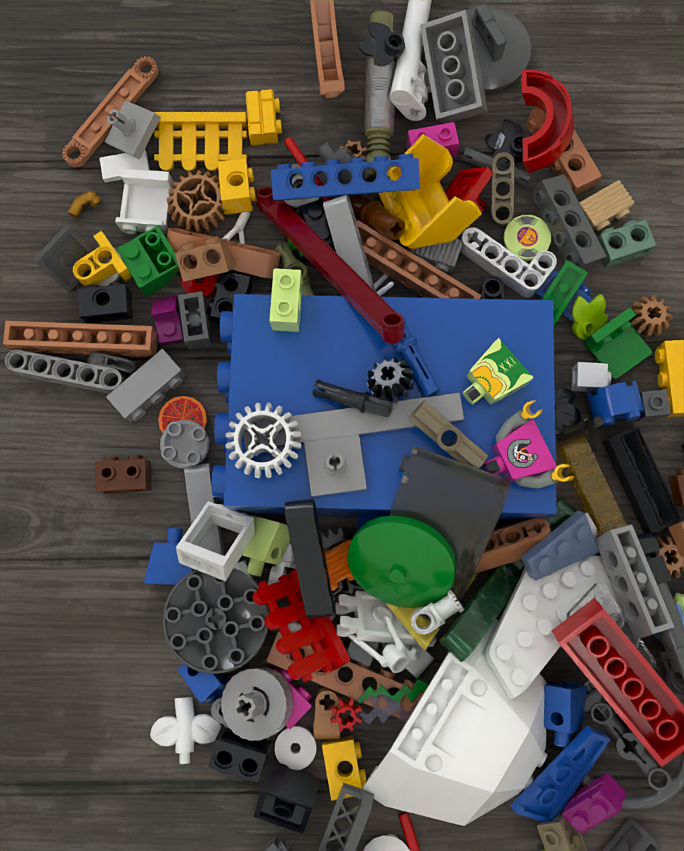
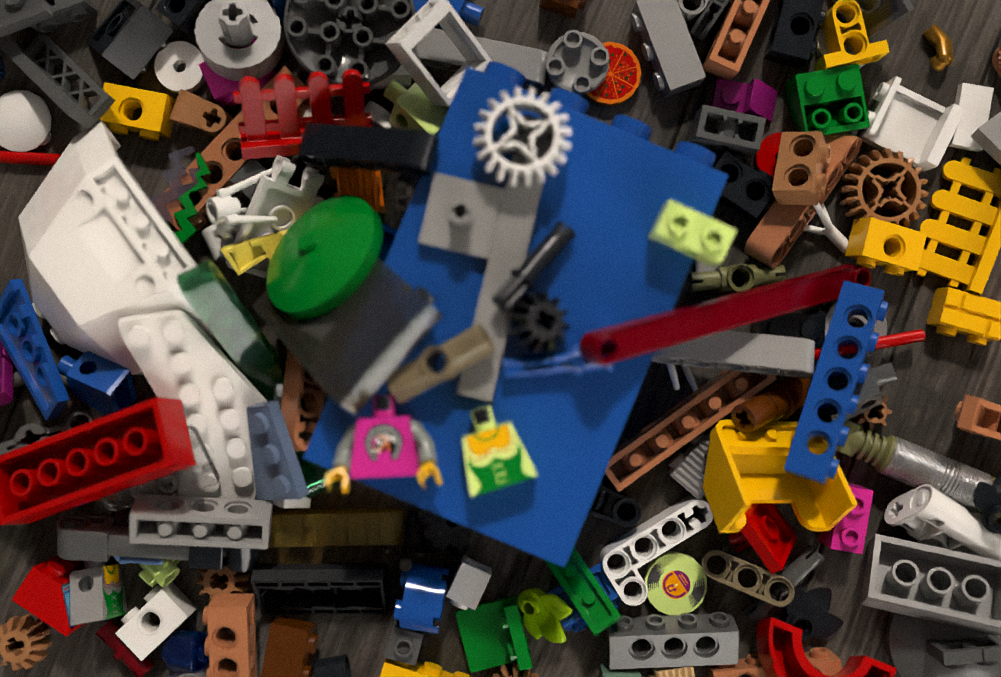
camera: 110 degrees right, 10 degrees up
(349, 721) = (178, 131): red gear -> none
(437, 612) = (252, 278): white connector -> none

